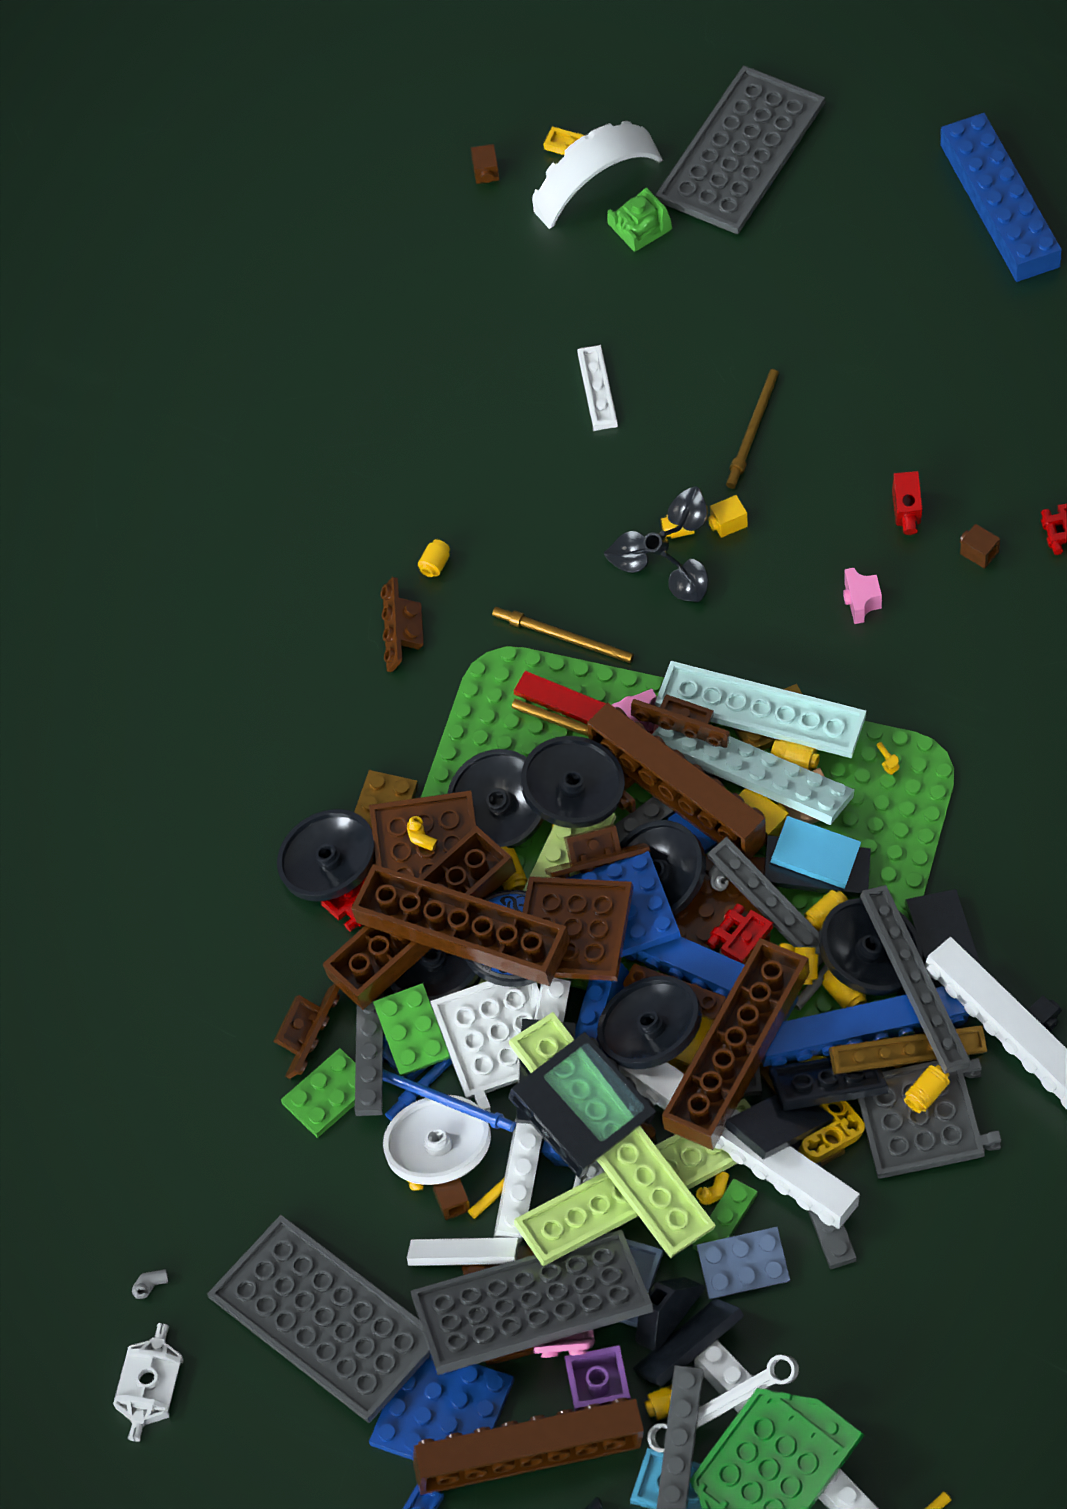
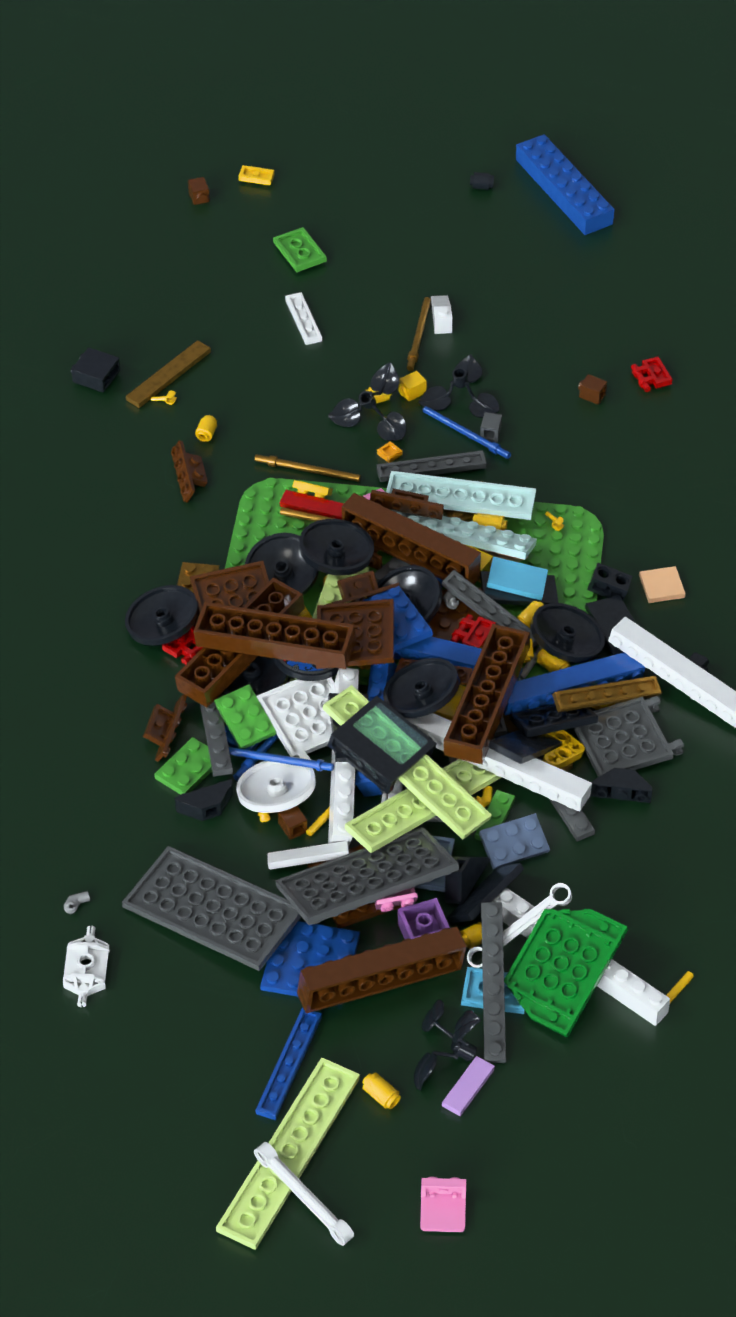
camera: 15 degrees left, 10 degrees down
(298, 449) = (95, 369): none -> black brick
(342, 1151) = (206, 801): none -> black slope
(393, 503) = (169, 398): none -> yellow hand
(397, 462) = (168, 374): none -> pearl gold tile
(418, 836) = (229, 592): yellow arm -> none
(554, 670) = (304, 487): none -> yellow plate
(585, 160) = (270, 178): white windscreen -> none
(609, 274) = (299, 249): none -> bright green plate
(640, 220) = (315, 215): bright green brick -> none
(680, 619) = (389, 452): none -> light orange tile
(733, 649) = (434, 465): none -> dark grey plate
(740, 149) = (377, 170): dark grey plate -> none
(789, 398) = (441, 314): none -> white slope
(809, 497) = (466, 371): none -> black plant
(825, 627) = (493, 447): none -> blue bar
(826, 594) = (491, 426): none -> dark grey brick
(862, 594) = (516, 424): bright pink brick -> none
(884, 180) = (482, 180): none -> black brick
(905, 1193) = (622, 785): none -> black slope
(907, 501) = (537, 371): red torso -> none
(915, 979) = (604, 647): dark grey plate -> none
(926, 1088) = (625, 716): yellow head -> none
(943, 873) = (609, 582): none -> black brick
(1020, 875) = (662, 584): none -> light nougat tile

